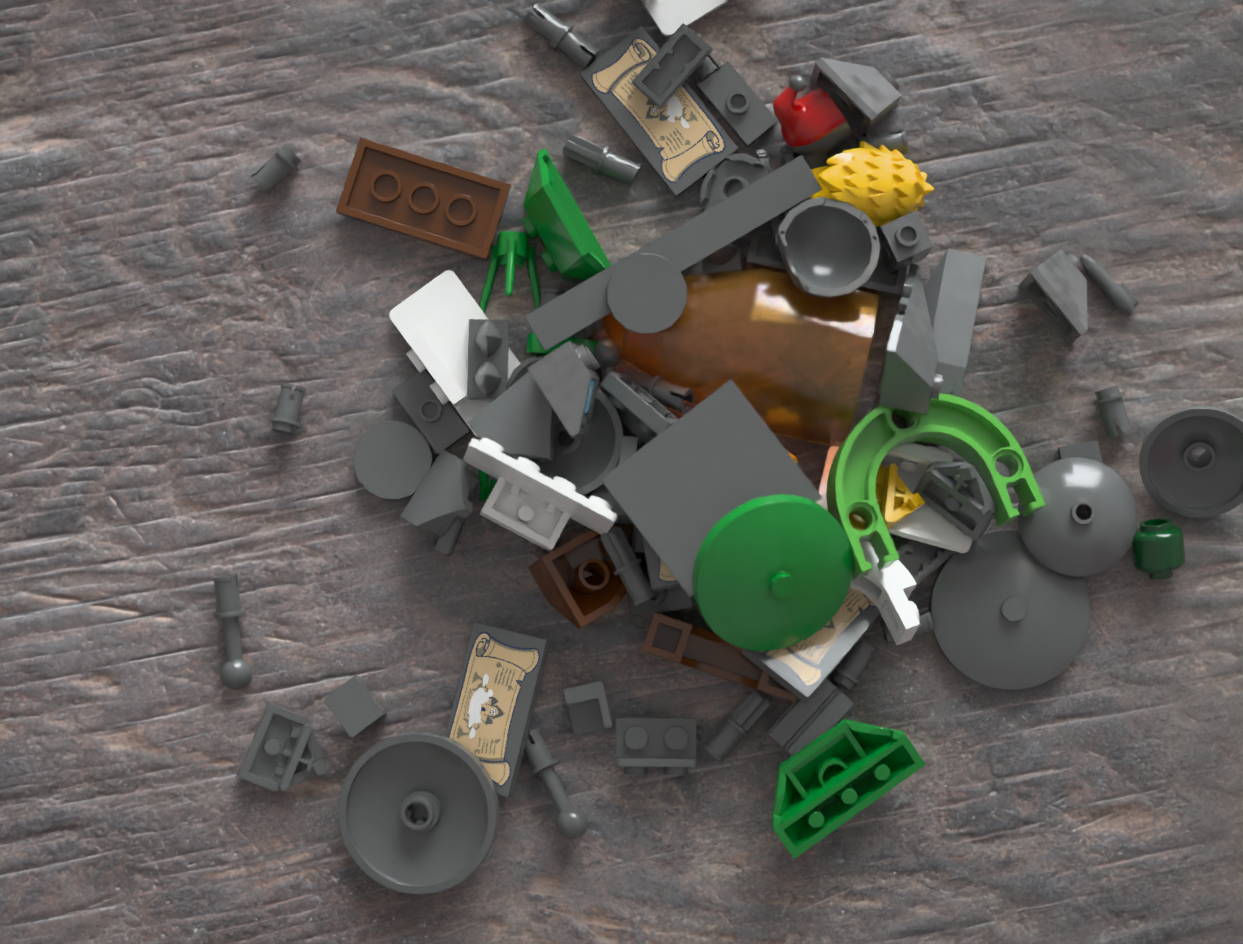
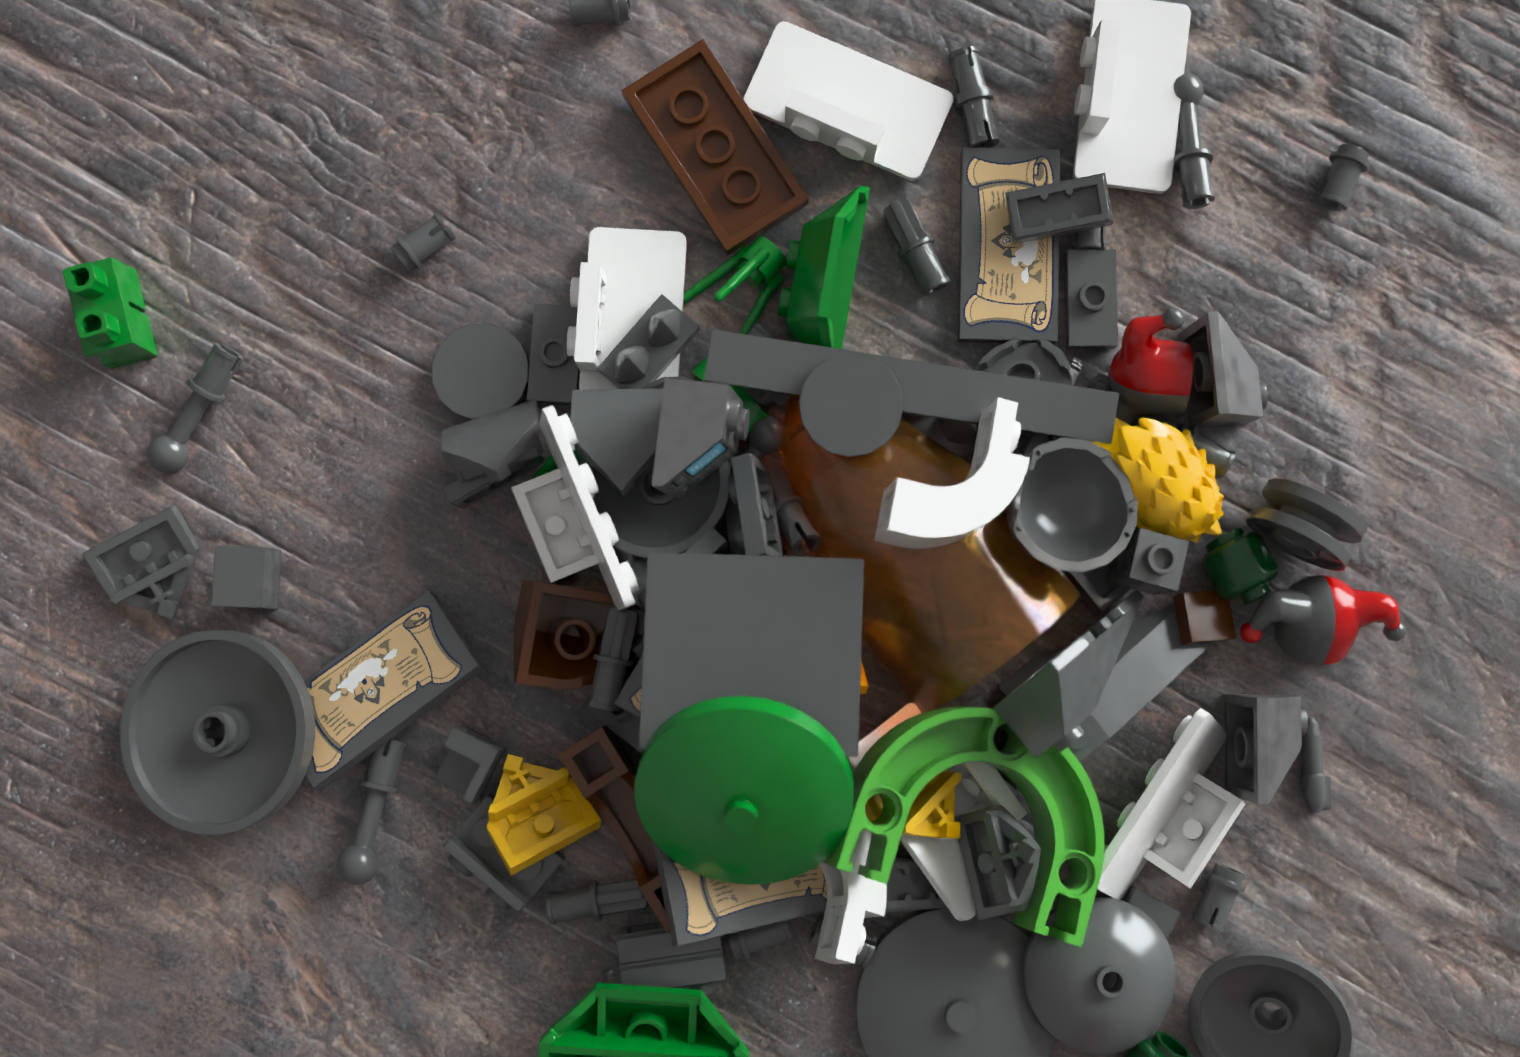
camera: 40 degrees right, 0 degrees up
(130, 613) = (110, 312): none -> green hips
(483, 102) = (848, 101): none -> white bracket
(657, 701) = (536, 814): none -> yellow slope
(752, 320) = (936, 516): none -> white arch
(962, 198) = (1240, 566): none -> dark green head
(967, 247) = (1203, 618): none -> reddish brown tile
(980, 141) = (1307, 524): none -> dark grey wheel
(1037, 190) = (1322, 618): none -> dark grey piece
(1044, 382) = (1178, 814): none -> white bracket

